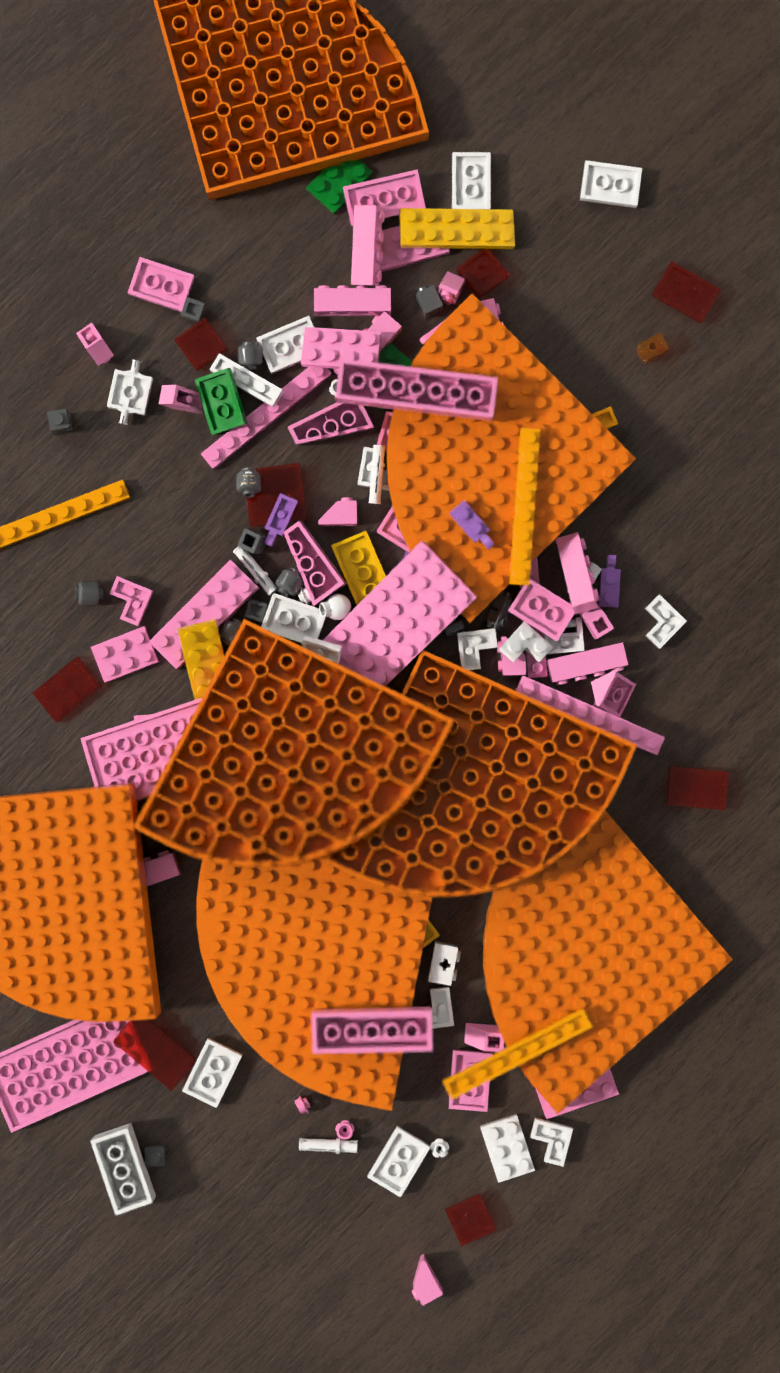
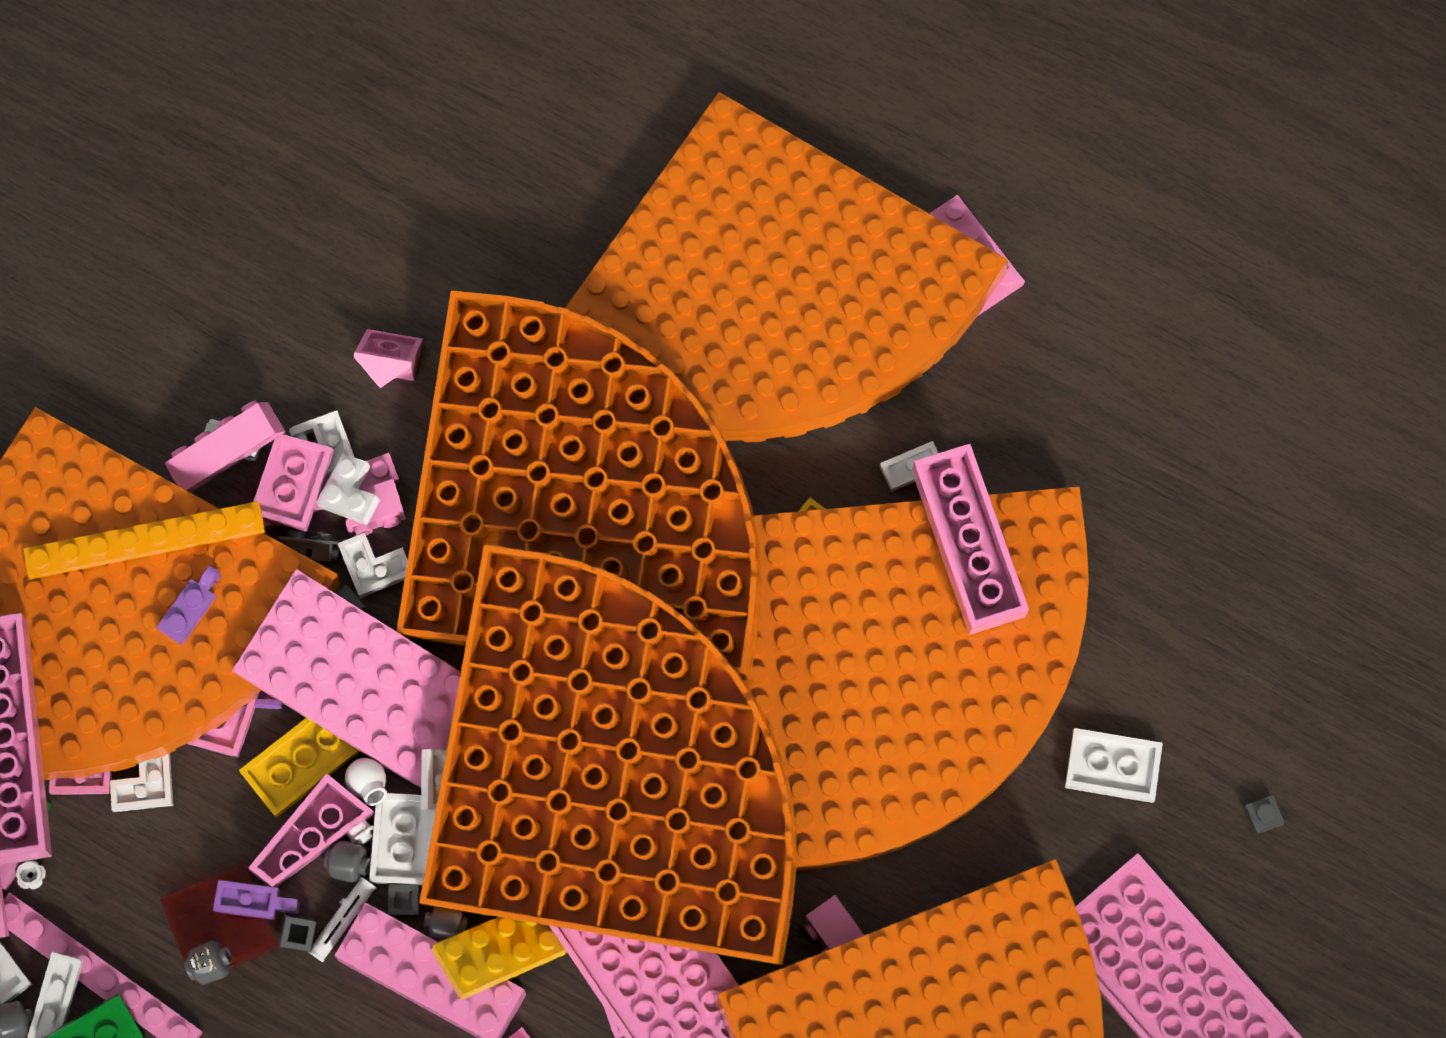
camera: 110 degrees left, 15 degrees down
(123, 1169) = (1296, 851): white brick -> none
(155, 1051) = (1110, 856): clear red plate -> none
(302, 1104) = (1117, 622): bright pink plate -> none
(328, 1145) = (1161, 563): white pin -> none
(331, 422) = (86, 868): bright pink wedge -> none
(340, 514) = (223, 814): bright pink slope -> none
(344, 1134) = (1133, 545): bright pink plate -> none
(379, 450) = (149, 775): white pin -> none
(398, 1161) = (1152, 464): white plate -> none
(425, 1283) = (1309, 379): bright pink slope -> none
(439, 1143) = (1114, 421): white plate -> none
(440, 952) = (834, 488): white brick -> none
(470, 1219) = (1199, 343): clear red plate -> none
(478, 1097) = (1004, 398): bright pink plate -> none
(484, 1037) = (935, 393): bright pink slope -> none
(507, 1148) = (1083, 323): white plate -> none
(517, 1053) = (940, 333): light orange plate -> none
(556, 1135) = (1046, 258): white plate -> none
(587, 662) = (354, 403): bright pink brick -> none
(596, 622) = (292, 402): bright pink slope -> none
(609, 584) = (225, 402): medium lavender plate -> none
(641, 737) = (441, 282): bright pink brick -> none
(668, 621) = (265, 307): white plate -> none
(697, 788) = (493, 206): clear red plate -> none

